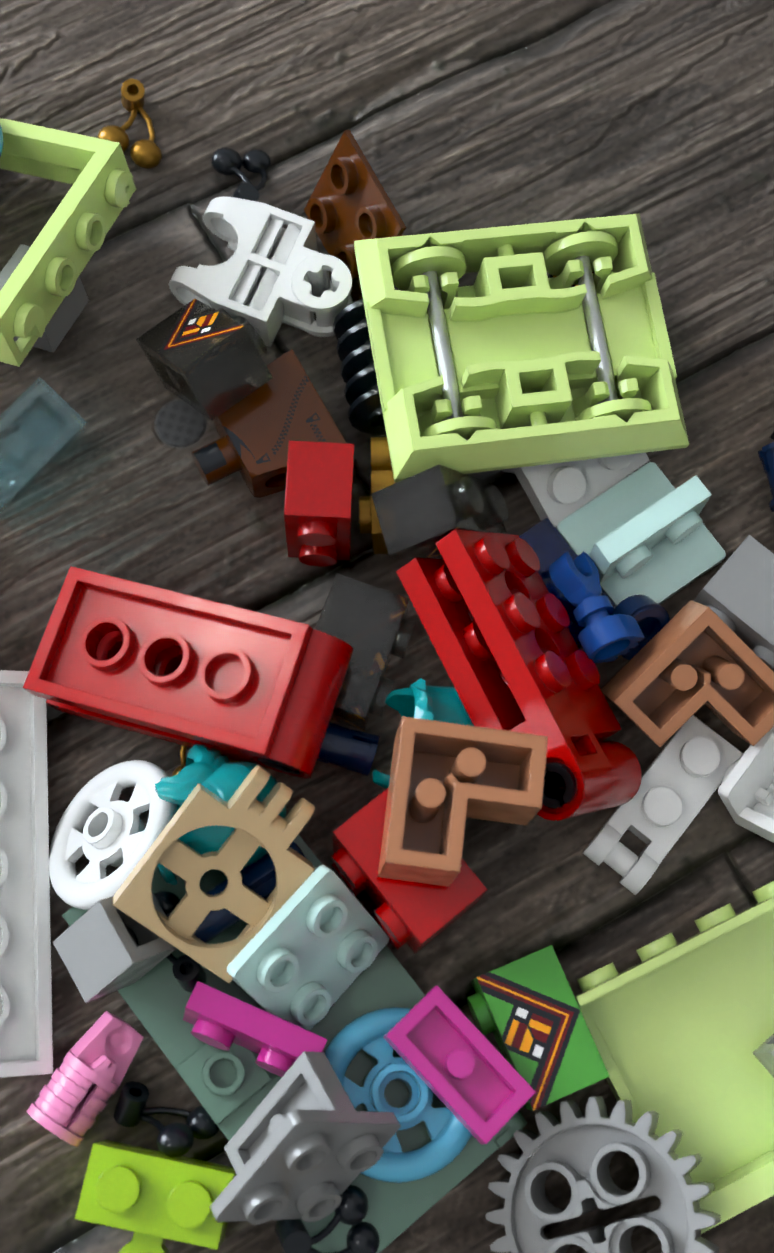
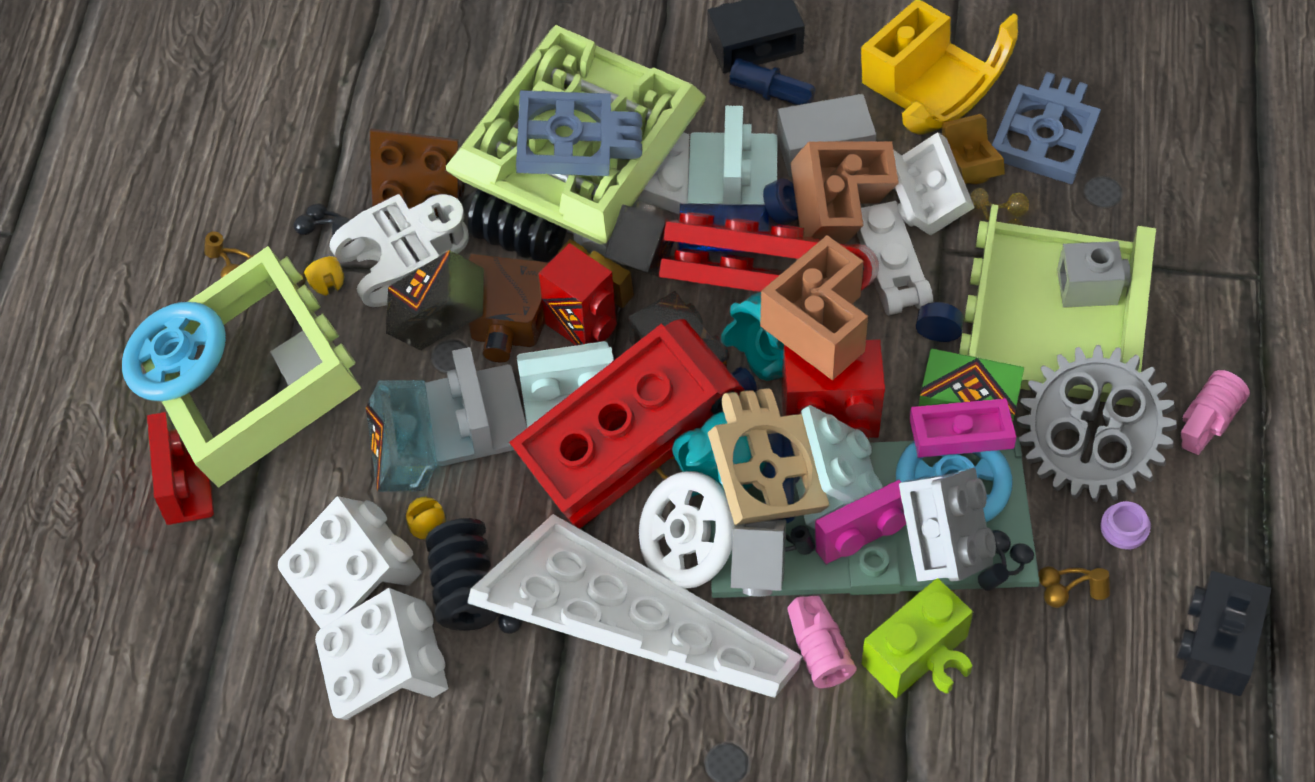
camera: 45 degrees left, 15 degrees down
(117, 499) = (474, 410): none -> light grey bracket
(174, 226) = (325, 274): none -> yellow hinge
(174, 1138) = (852, 629): black piece -> none
(220, 557) = (556, 373): none -> light aqua bracket
(520, 379) = (617, 131): none -> sand blue piece
(605, 633) = (777, 209): blue piece -> none
(611, 923) = (939, 322): none -> dark blue tile

